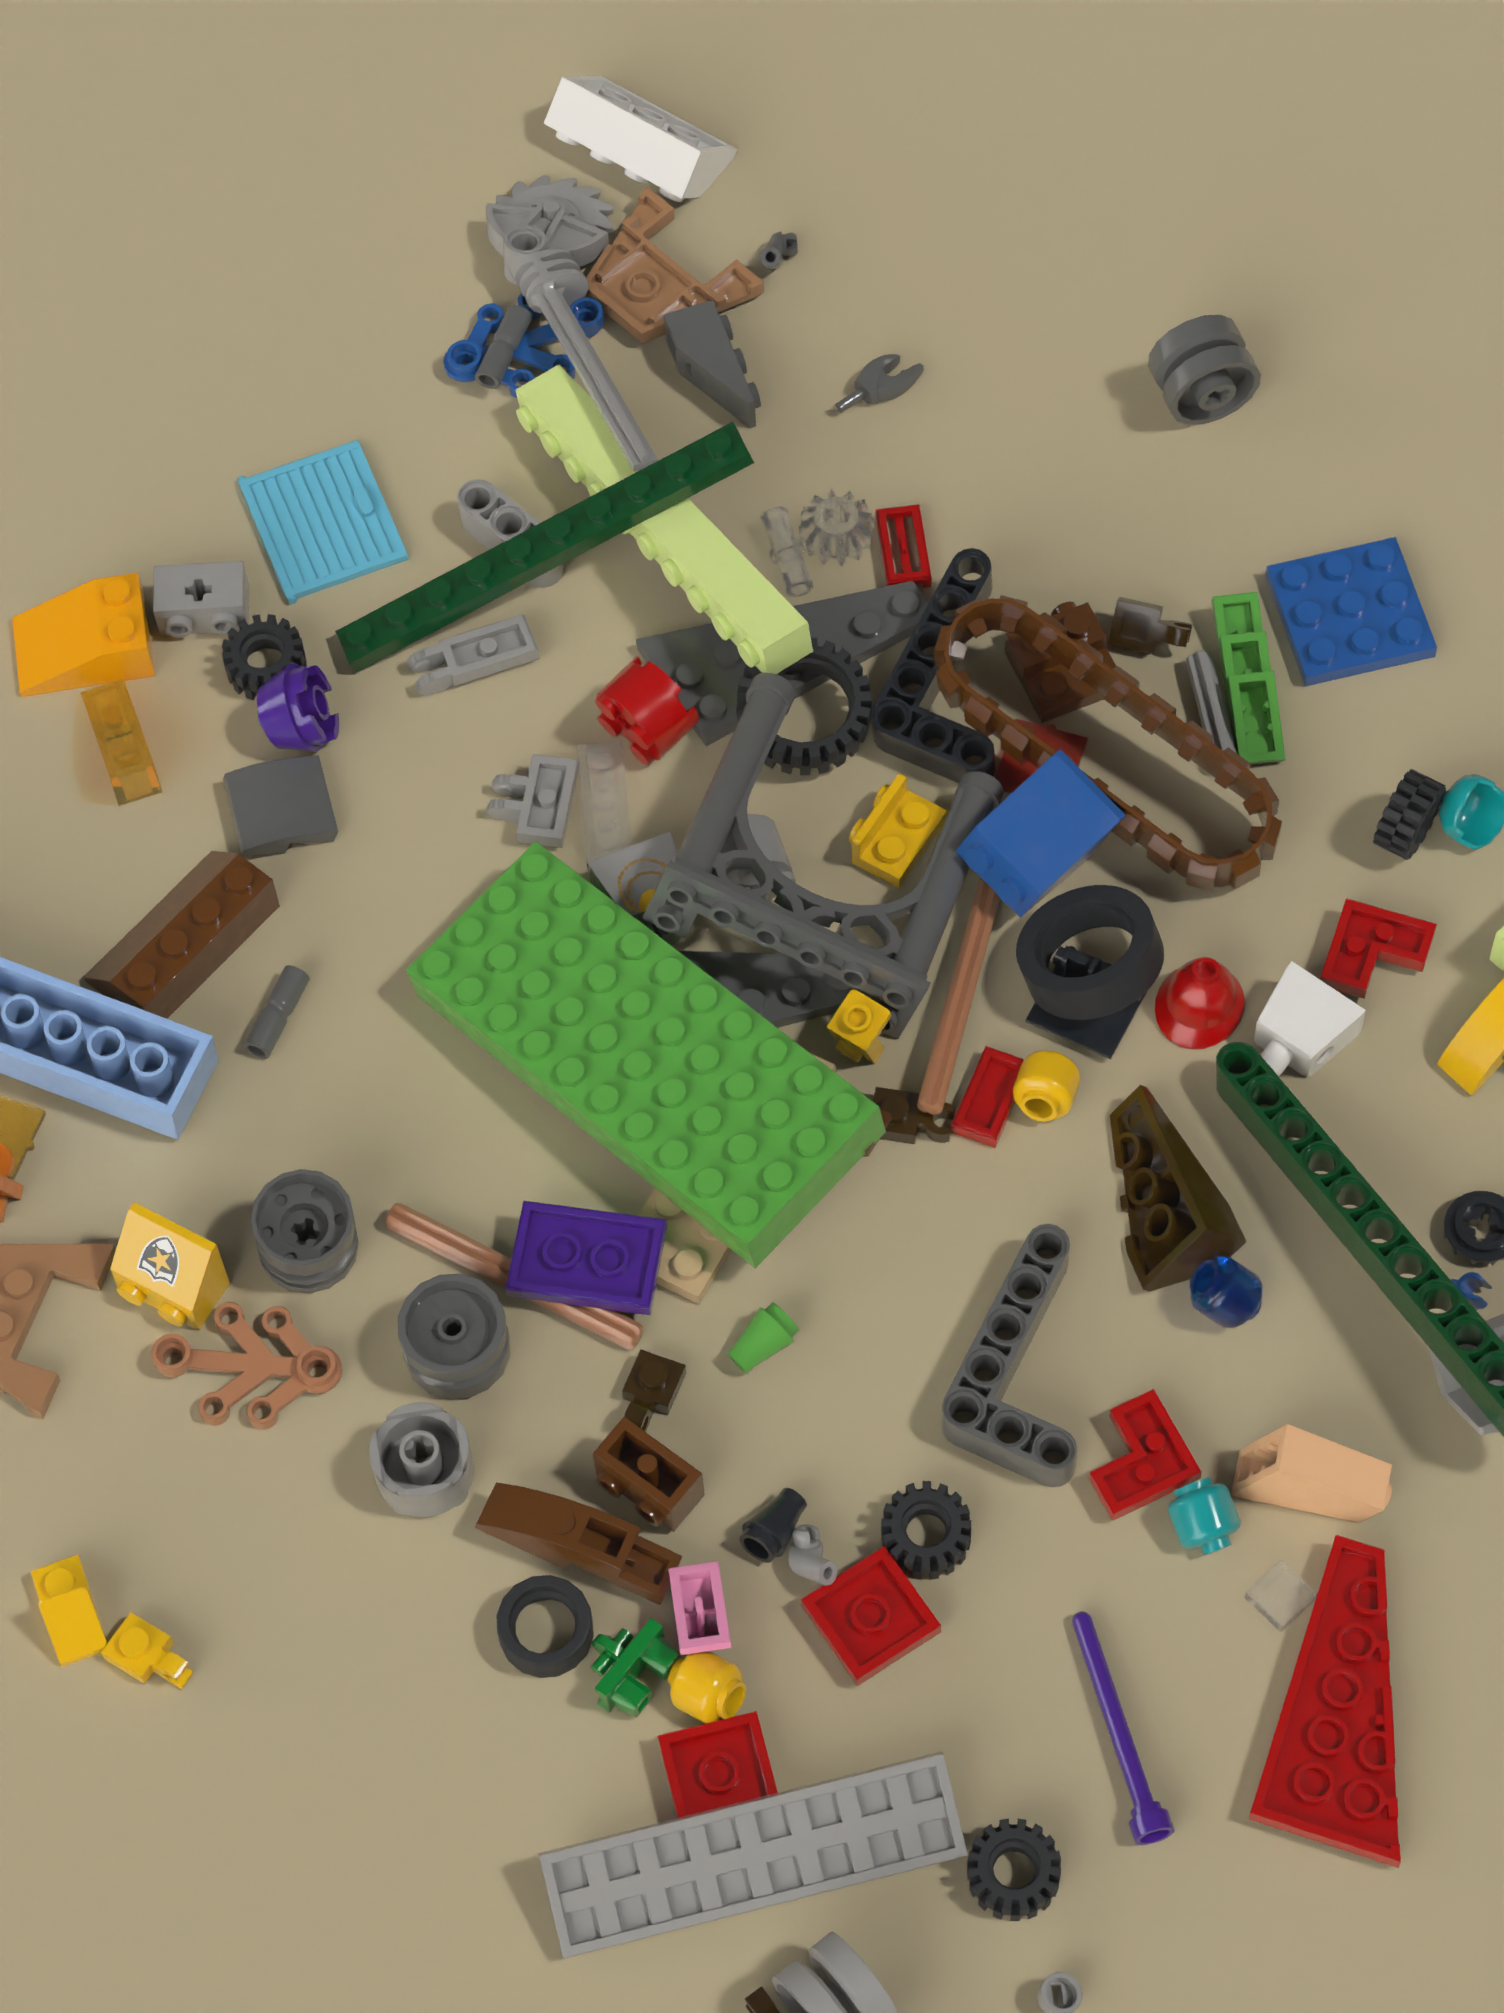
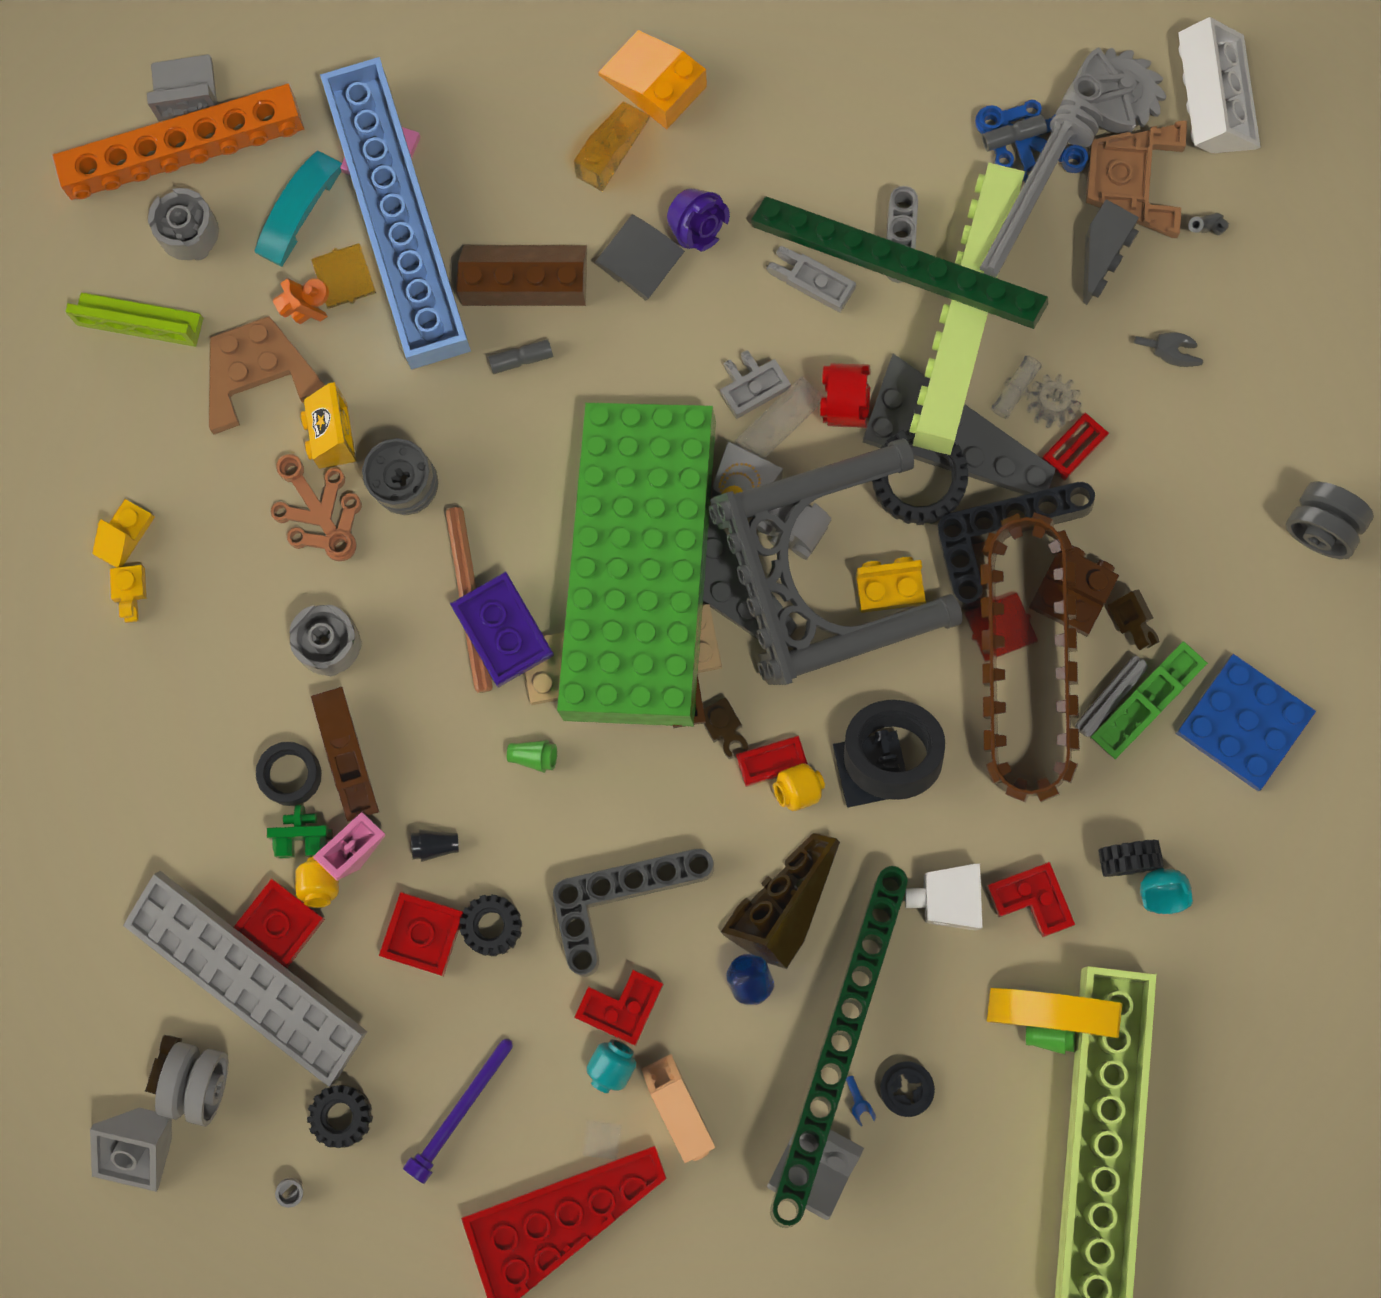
camera: 55 degrees right, 15 degrees up
(200, 598) = (712, 108): light grey brick -> none
(257, 637) = (720, 157): black tyre -> none
(322, 520) = (830, 132): medium azure piece -> none
(454, 1336) = (391, 585): dark grey wheel -> none
(648, 1475) = (404, 759): reddish brown brick -> none
(651, 1387) = (463, 719): dark brown plate -> none
(806, 1556) = (427, 876): light grey arm -> none
(858, 1027) = (747, 662): yellow bracket -> none
(958, 1000) = (818, 697): nougat axle -> none
(1040, 833) = (939, 667): blue slope -> none
(1199, 1004) = (921, 829): red hat -> none

